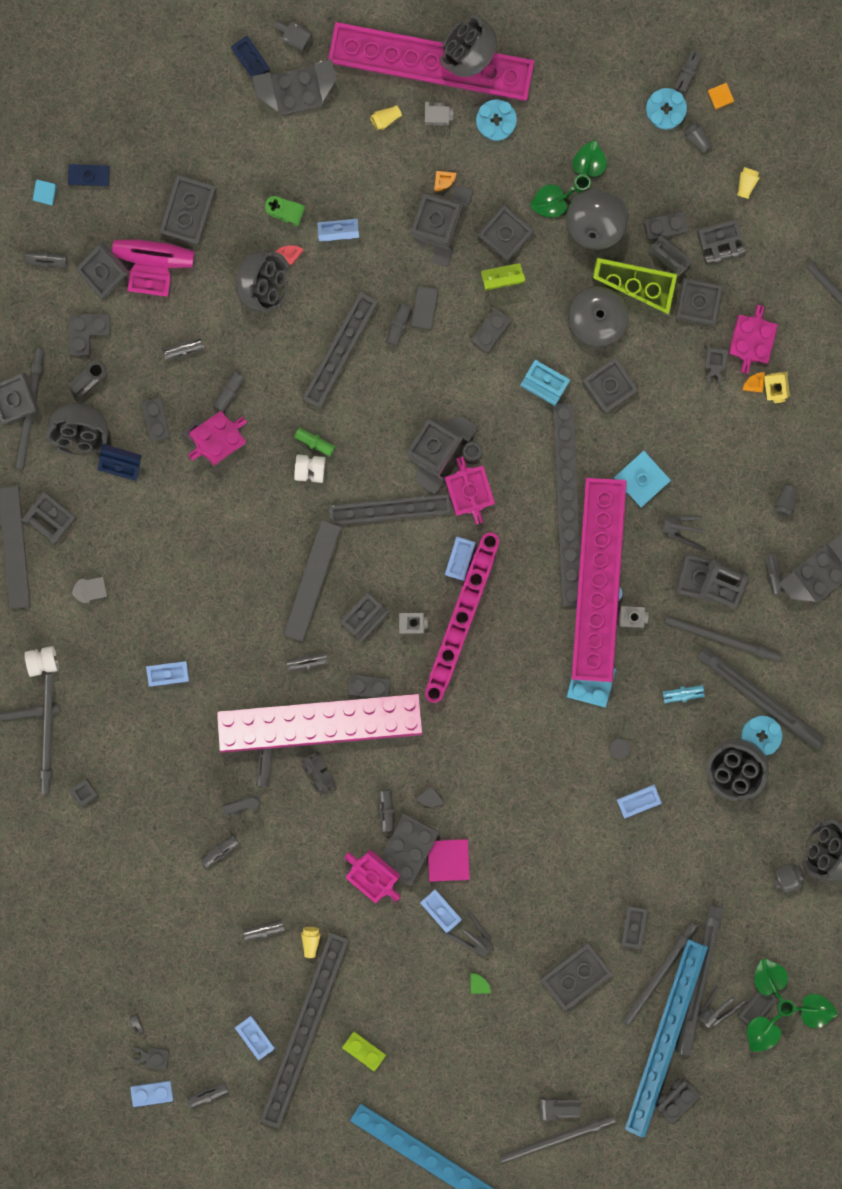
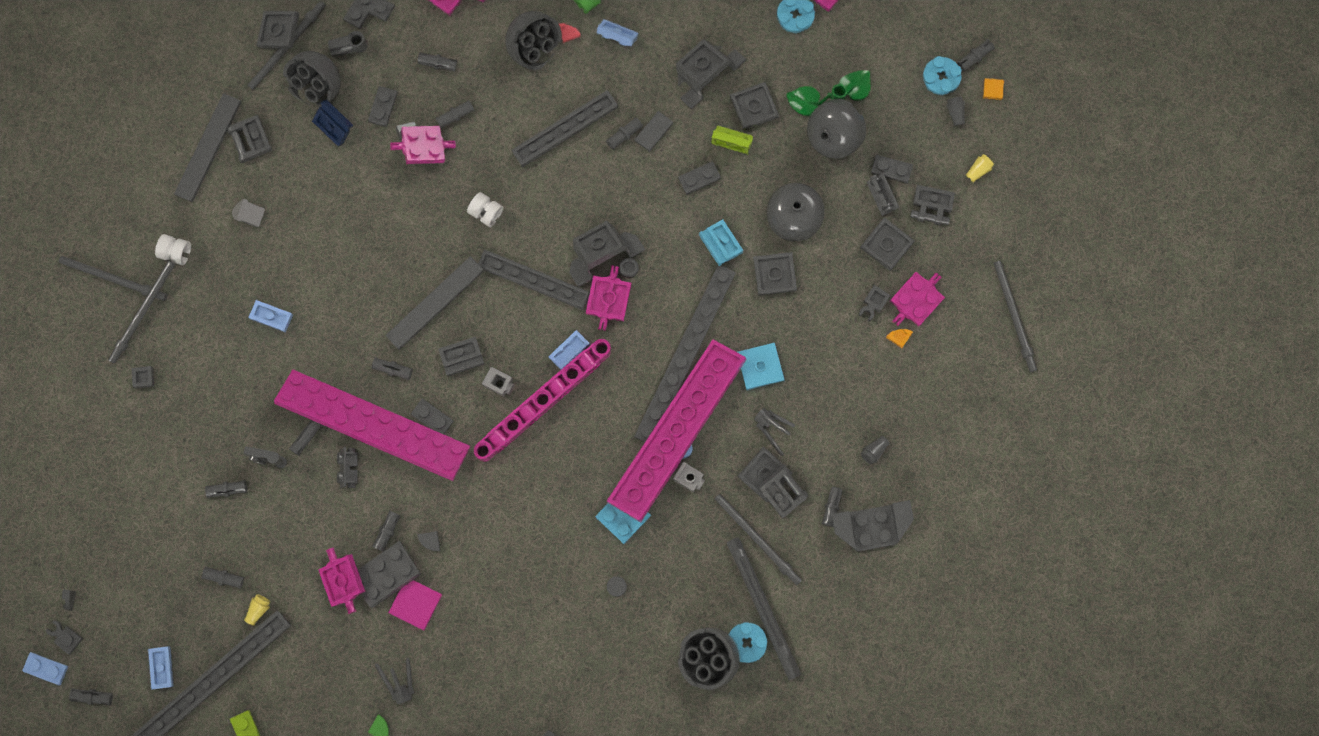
camera: 30 degrees right, 10 degrees down
(314, 442) = (502, 191): bright green pin -> none
(441, 910) = (383, 644): light blue plate -> none
(444, 180) = (726, 39): light orange tile -> none
(639, 801) = (608, 642): light blue plate -> none
(642, 283) = (844, 200): lime wedge -> none
(683, 694) = (697, 568): medium azure pin -> none
(770, 382) = (915, 341): light yellow brick -> none

